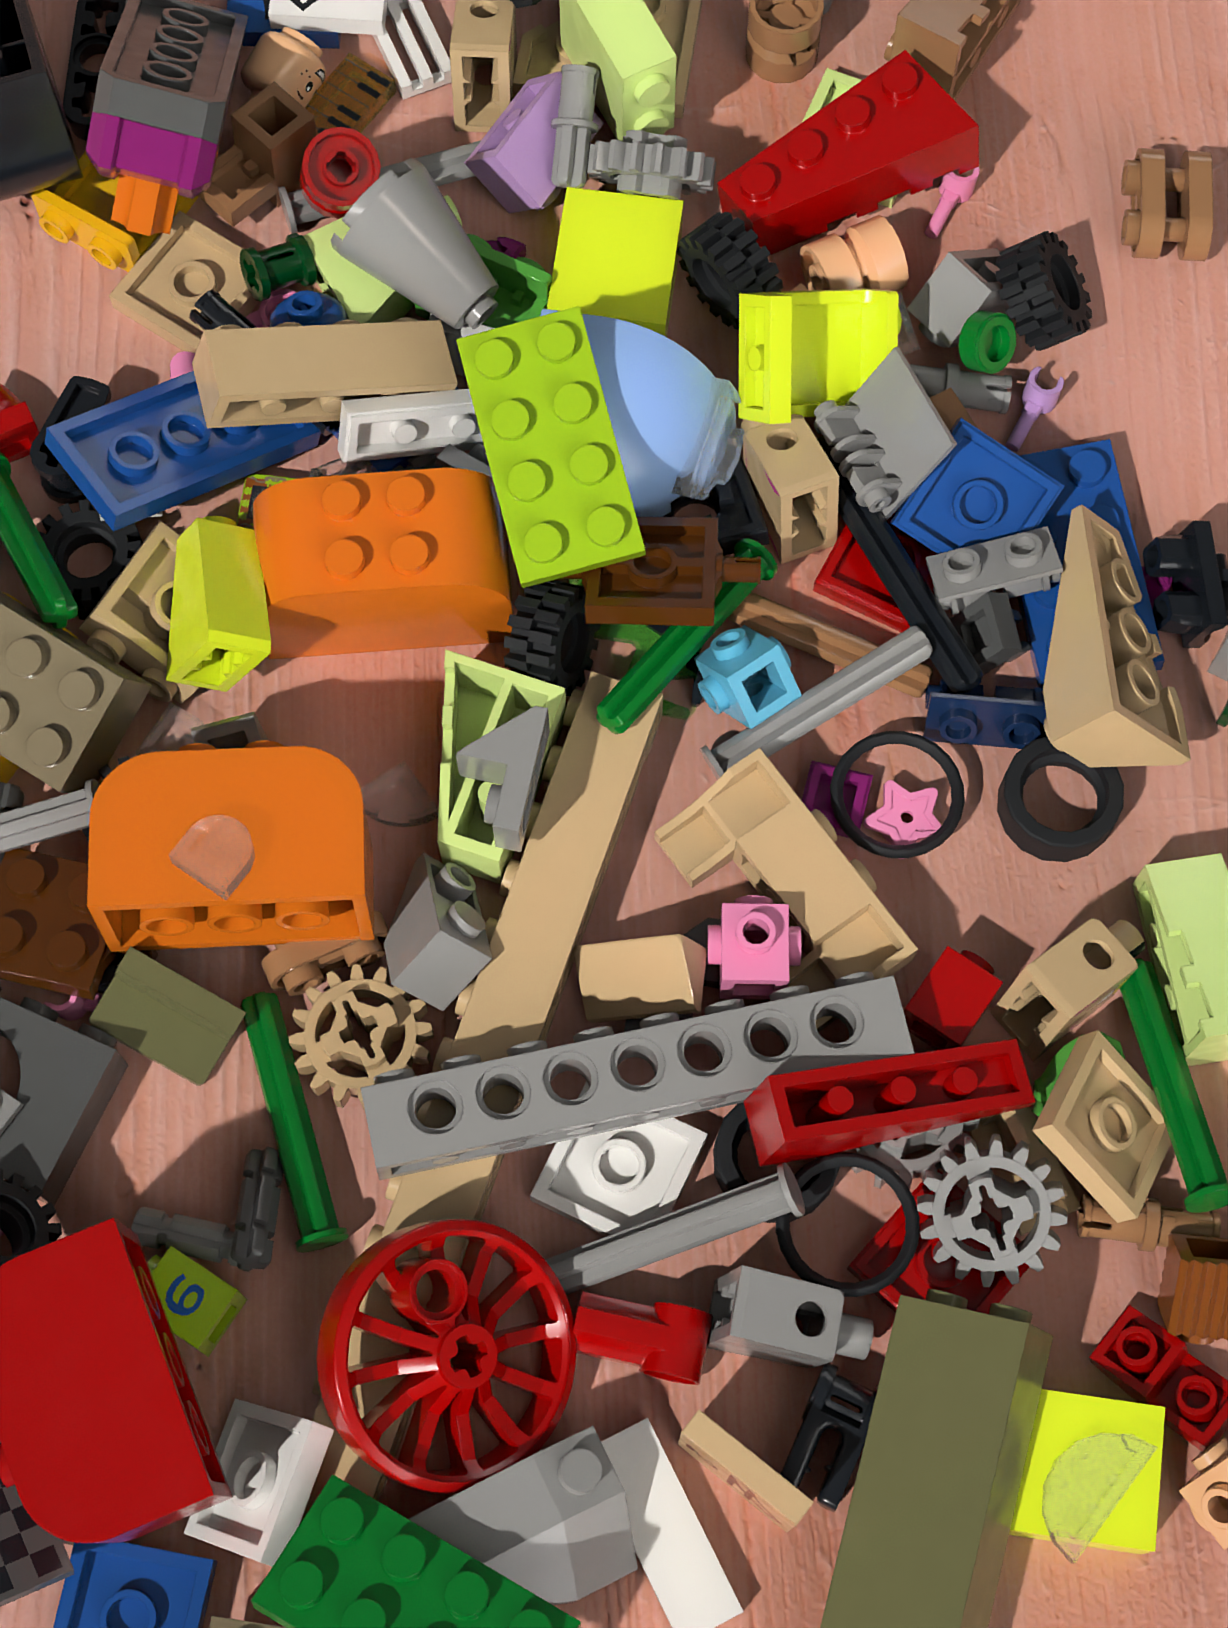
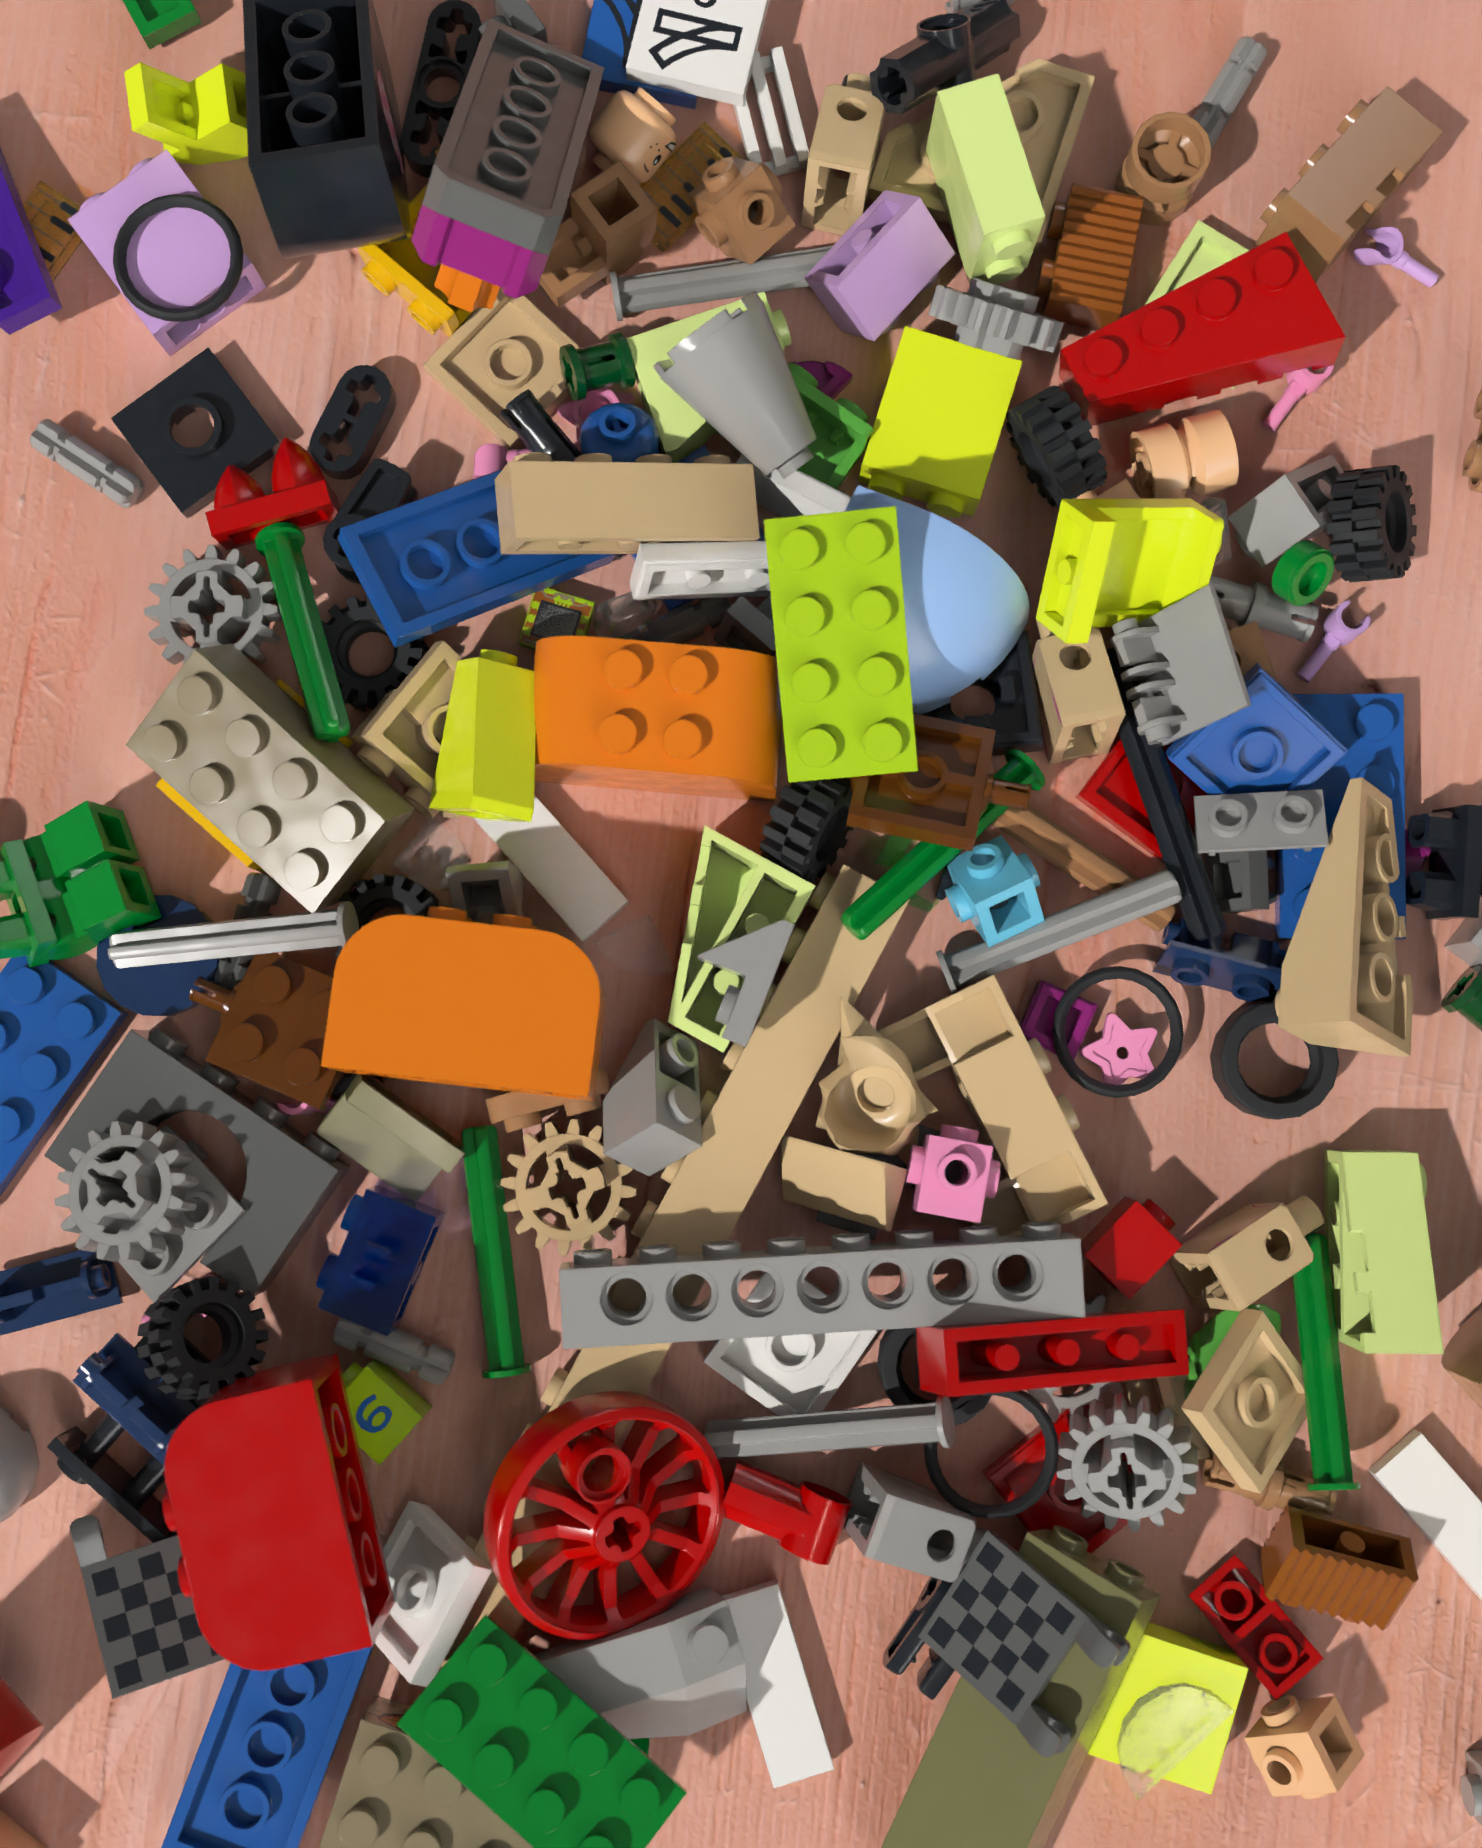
camera: 10 degrees right, 15 degrees up
(36, 353) = (340, 416): none -> black beam
(171, 1141) = (378, 1259): none -> clear blue brick
(216, 853) = (450, 1036): clear tile -> none
(257, 1209) = (451, 1338): dark grey axle -> none
(296, 717) = (558, 870): none -> white tile
(338, 170) = (674, 278): red wheel -> none
(395, 113) = (740, 208): none -> medium nougat brick
(574, 125) = (924, 262): light grey axle -> none
(656, 880) = (872, 1094): none -> tan hair
(716, 447) = (1007, 650): clear tile -> none
(732, 106) = (1091, 256): none -> dark orange brick
(744, 1472) = (856, 1663): tan tile -> none
(899, 1397) = (1009, 1634): none -> dark grey flag
(1010, 67) = (1390, 251): none -> lavender hand

